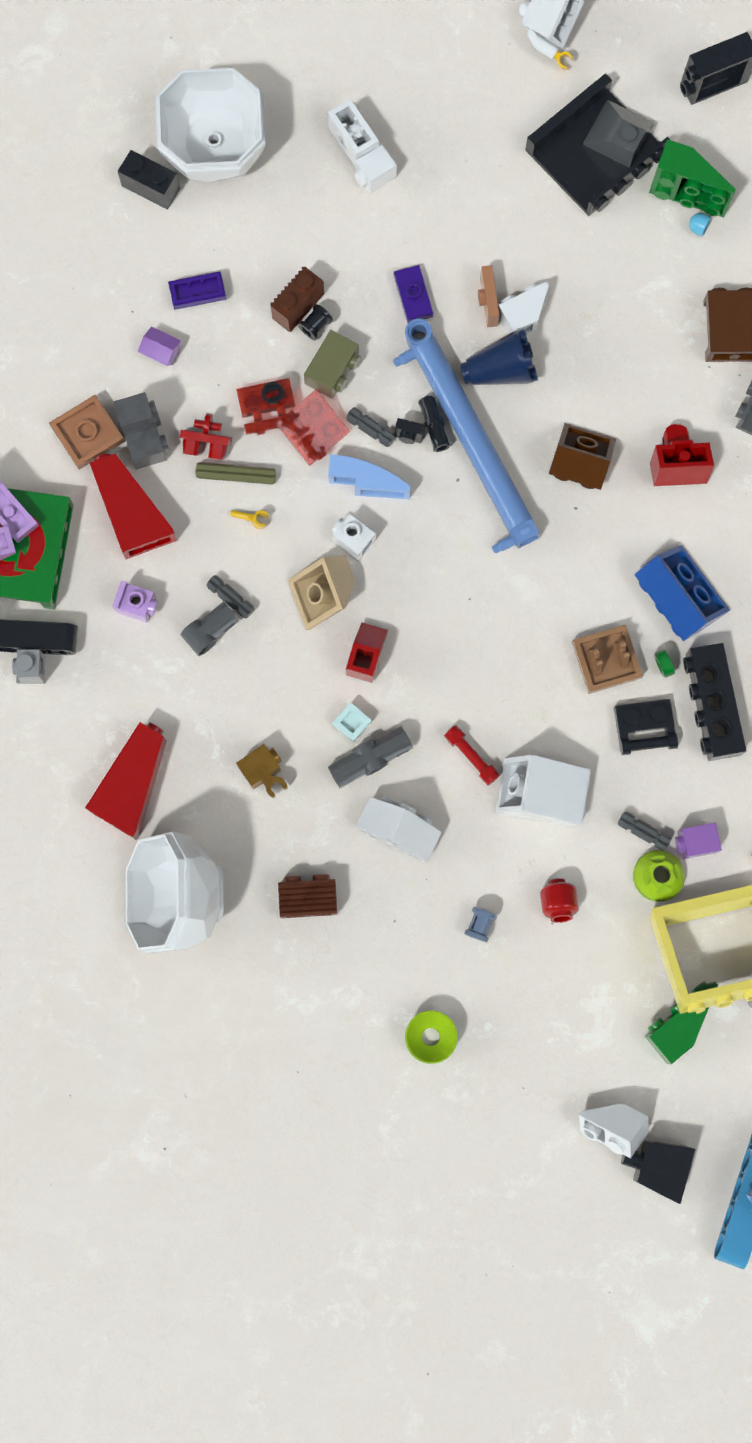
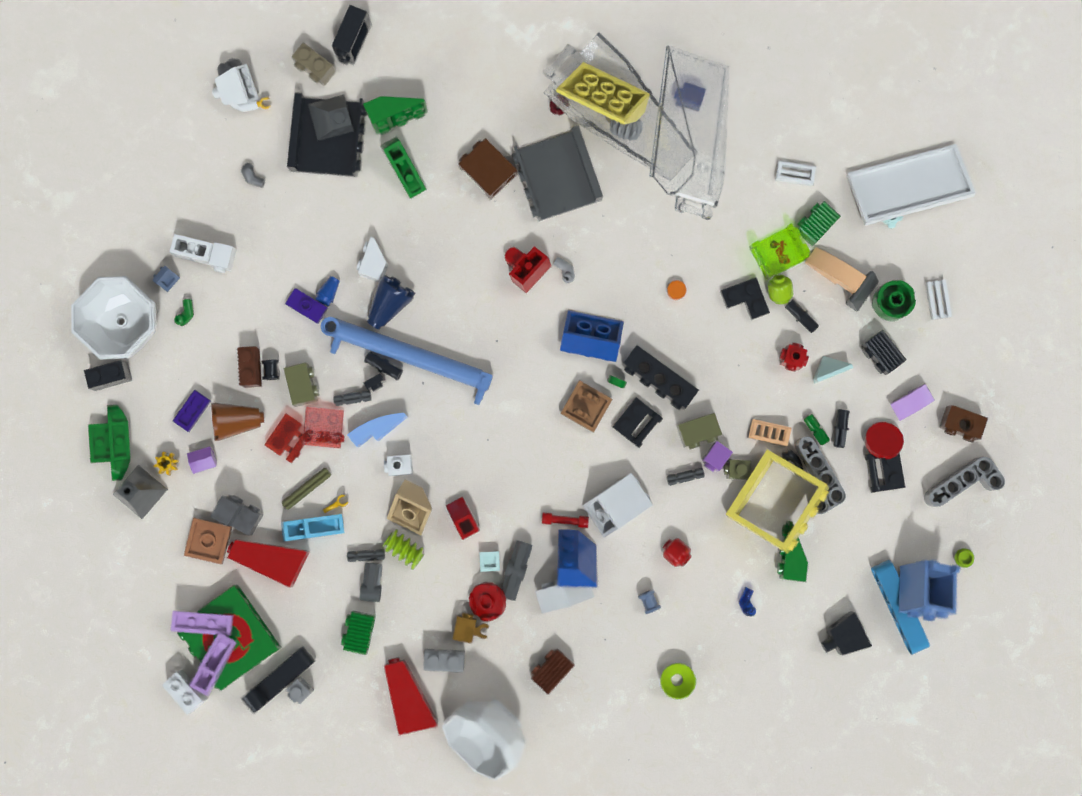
camera: 45 degrees left, 5 degrees up
(67, 320) = (140, 492): none -> dark grey slope
(87, 247) = (111, 442): none -> green plate
(122, 324) = (172, 466): none -> yellow gear
(141, 611) = (312, 605): lavender brick -> none
(147, 665) = (358, 633): none -> green brick
(193, 439) = (267, 491): red hips -> none
(203, 516) = (312, 527): none -> medium azure slope
(206, 777) = (444, 660): none -> light grey brick
(230, 335) = (234, 420): none -> dark orange cone
(271, 387) = (290, 432): black hinge -> none
(275, 625) = (403, 549): none -> lime piece
(284, 194) = (186, 315): none -> green arm
(298, 139) = (165, 278): none -> sand blue tile
(310, 760) = (487, 601): none -> red tile
(445, 802) = (576, 560): none -> blue slope
(449, 298) = (328, 291): none -> blue cone
(478, 119) = (249, 176): none -> flat silver arm
(487, 296) = (347, 272): nougat plate -> none
(582, 457) = (475, 311): reddish brown slope -> none
(582, 1026) = (745, 603): none -> clear blue arm
(616, 1127) = (807, 637): white slope -> none
(646, 246) = (403, 167): none -> green slope
(646, 883) = (703, 495): lime piece -> none
(651, 65) = (314, 64): none -> dark tan brick
(699, 223) = (419, 128): medium azure hinge -> none
(705, 796) = (699, 430): none -> olive brick
(708, 876) = (737, 469): none -> olive bracket
(720, 502) = (567, 269): none -> light grey arm

